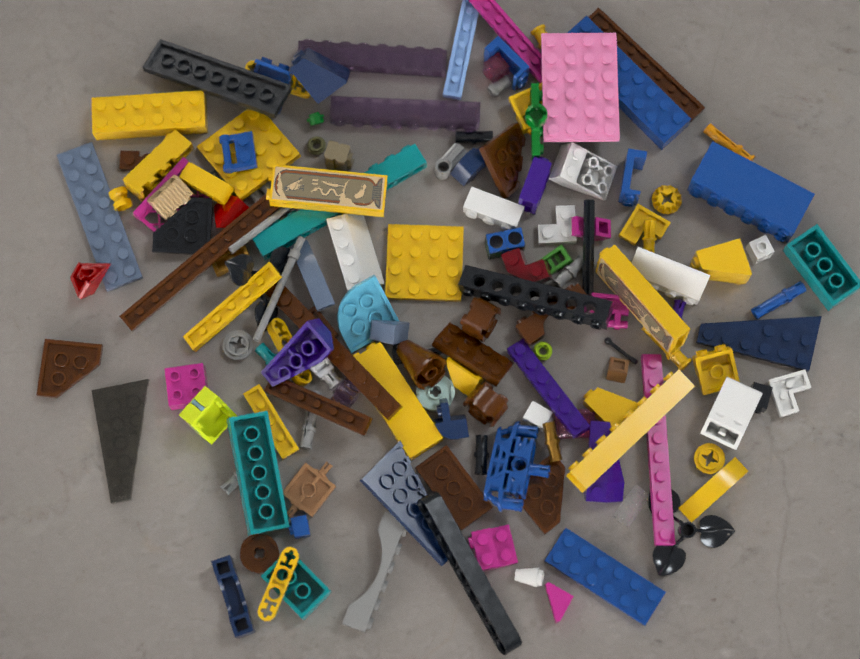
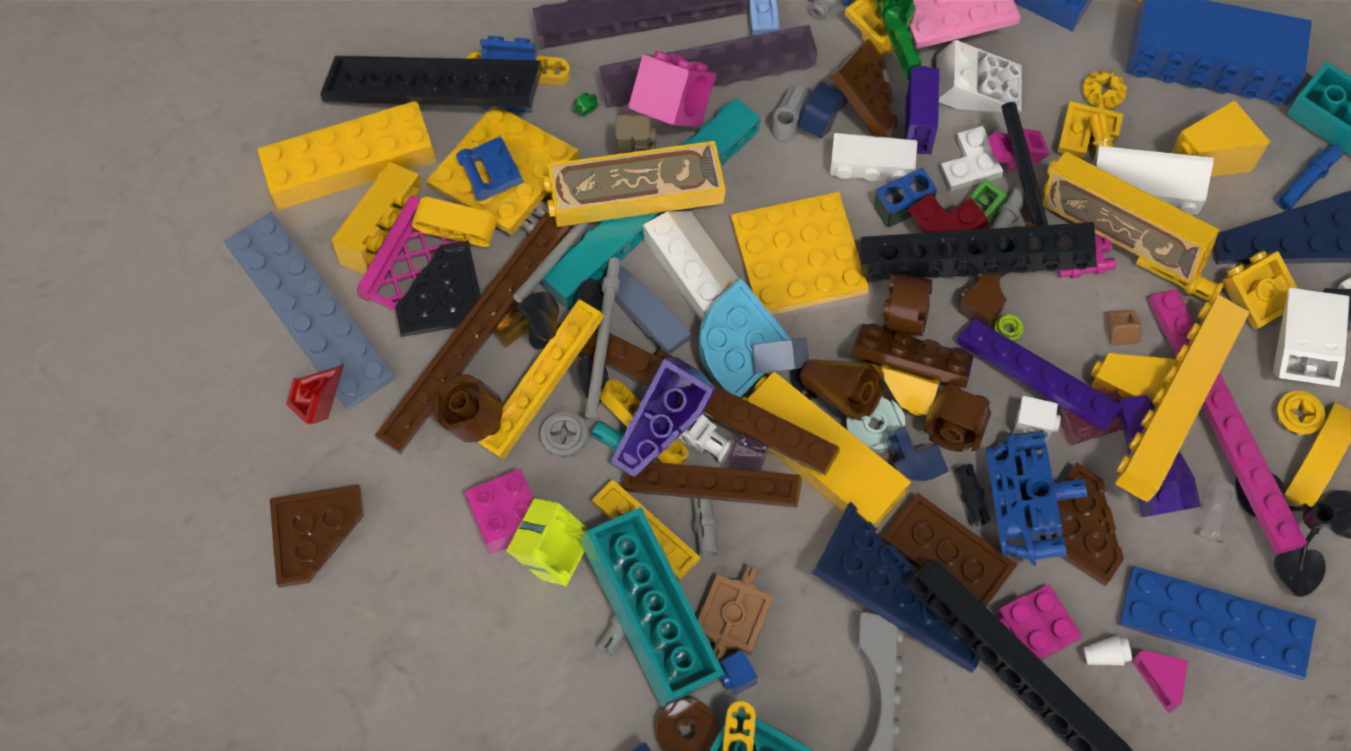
camera: 15 degrees left, 10 degrees down
(120, 199) = (333, 276): yellow wheel -> none
(120, 424) = (417, 597): clear smoke wing -> none
(130, 159) = (331, 221): reddish brown plate -> none
(170, 197) = (407, 251): tan brick -> none
(181, 314) = (468, 409): none -> reddish brown brick
(229, 212) = (498, 253): red slope -> none
(316, 140) = (593, 132): olive plate -> none
(318, 73) = (574, 38): dark blue slope -> none
(370, 131) = (672, 89): none -> brick
(473, 136) = (812, 74): black pin -> none
(552, 441) = (1073, 444): pearl gold pin -> none
(608, 341) = (1139, 308): black hinge -> none
(634, 160) = (1050, 88): blue panel -> none
(759, 249) = (1263, 113): white brick -> none

